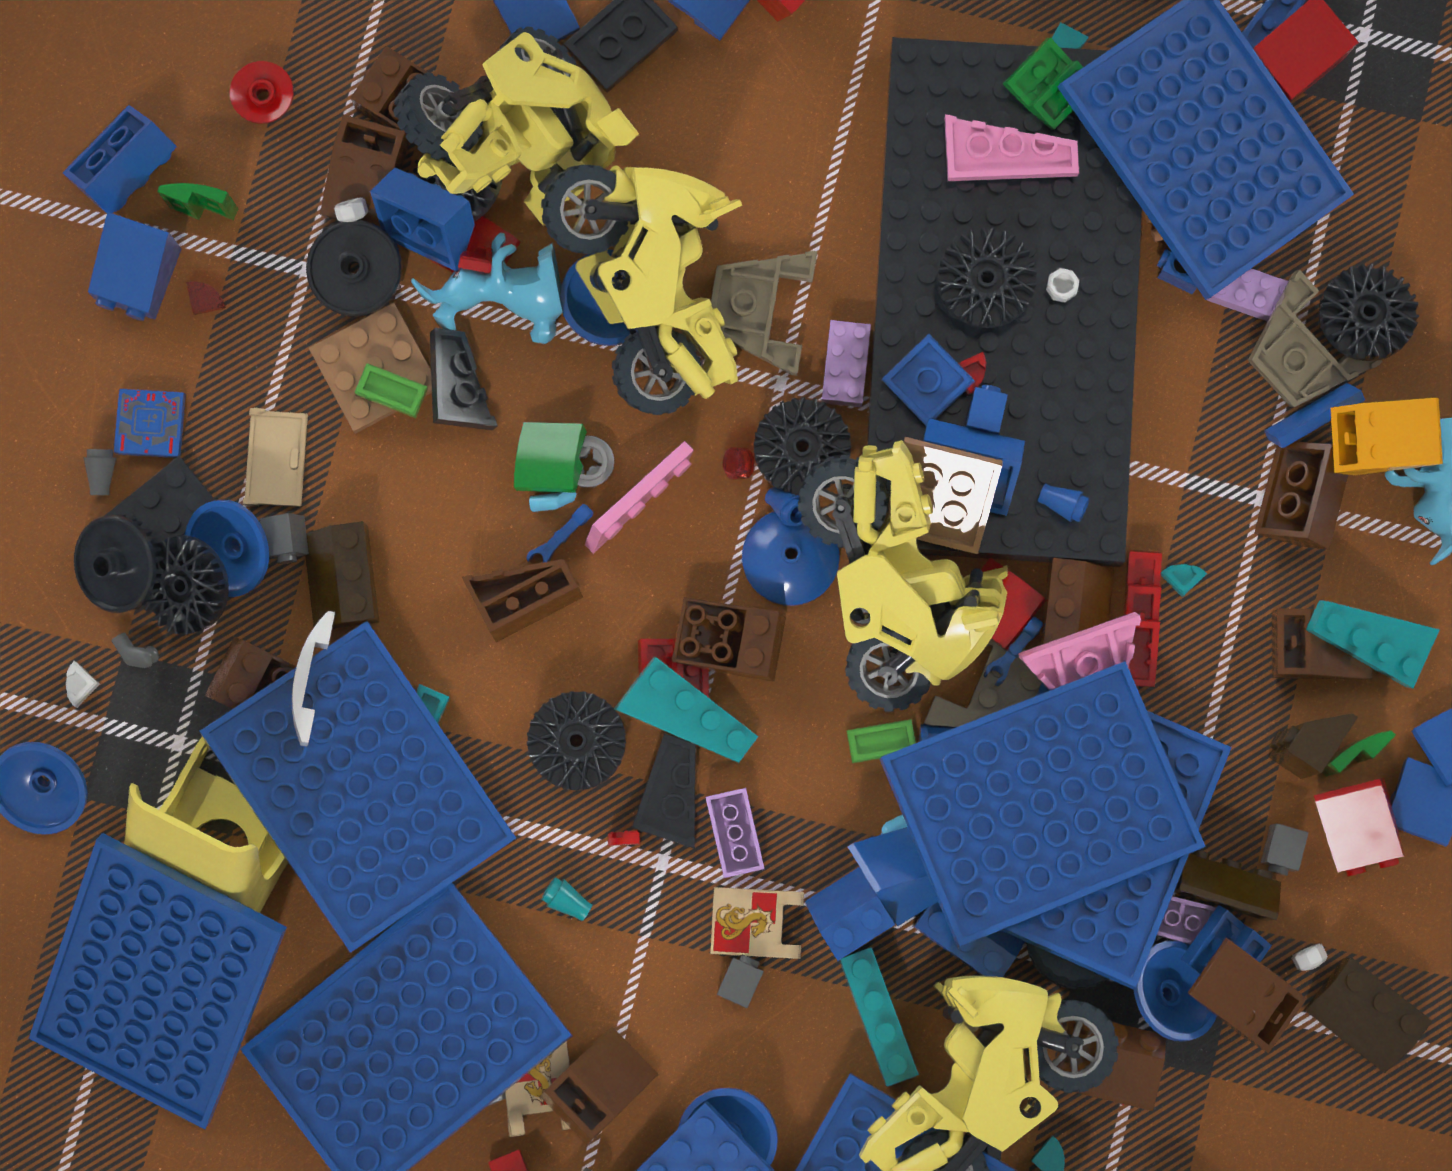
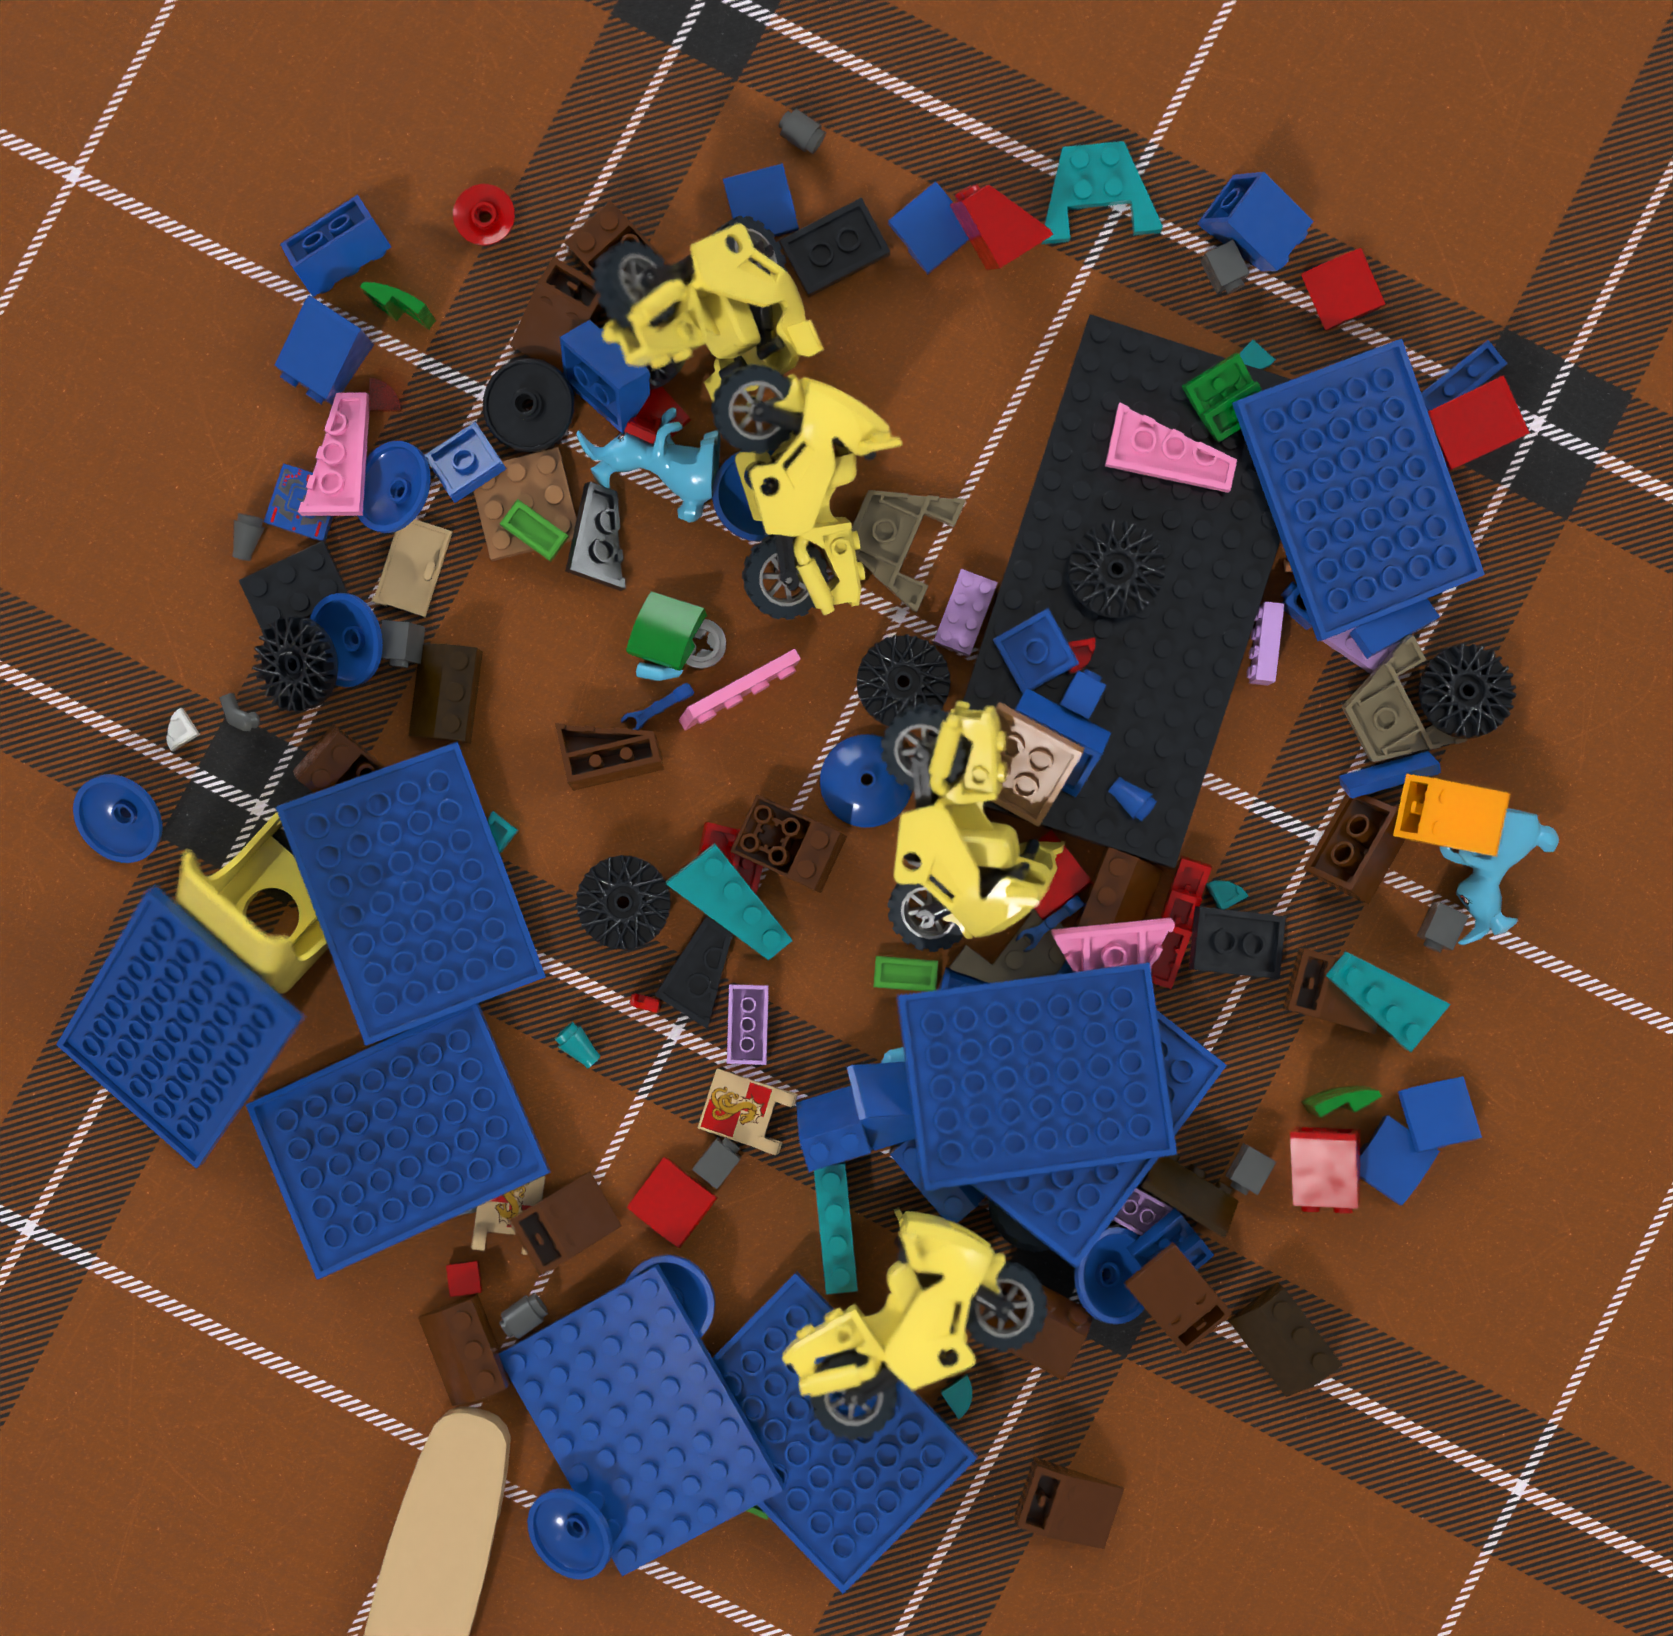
camera: 15 degrees right, 5 degrees up
(117, 563) = (240, 628): black wheel -> none
(179, 378) = (341, 461): none -> bright pink wing
(236, 383) = (394, 486): none -> blue dish
(303, 340) = (465, 462): none -> tile
(318, 638) = (407, 747): white slope -> none
(351, 210) = (539, 349): white tile -> none
(704, 1036) = (672, 1202): none -> red slope
(738, 463) = (840, 681): clear red tile -> none
(785, 506) = (872, 732): blue cone -> none
(1062, 285) = (1186, 593): white tile -> none
(1155, 317) = (1266, 644): none -> lavender piece
(1208, 622) = (1237, 942): none -> black plate
(1277, 268) = (1393, 627): none -> blue tile
(1310, 745) = (1301, 1083): dark brown slope -> none
(1310, 957) = (1246, 1275): white tile -> none
(1409, 554) = (1442, 927): none -> dark grey brick

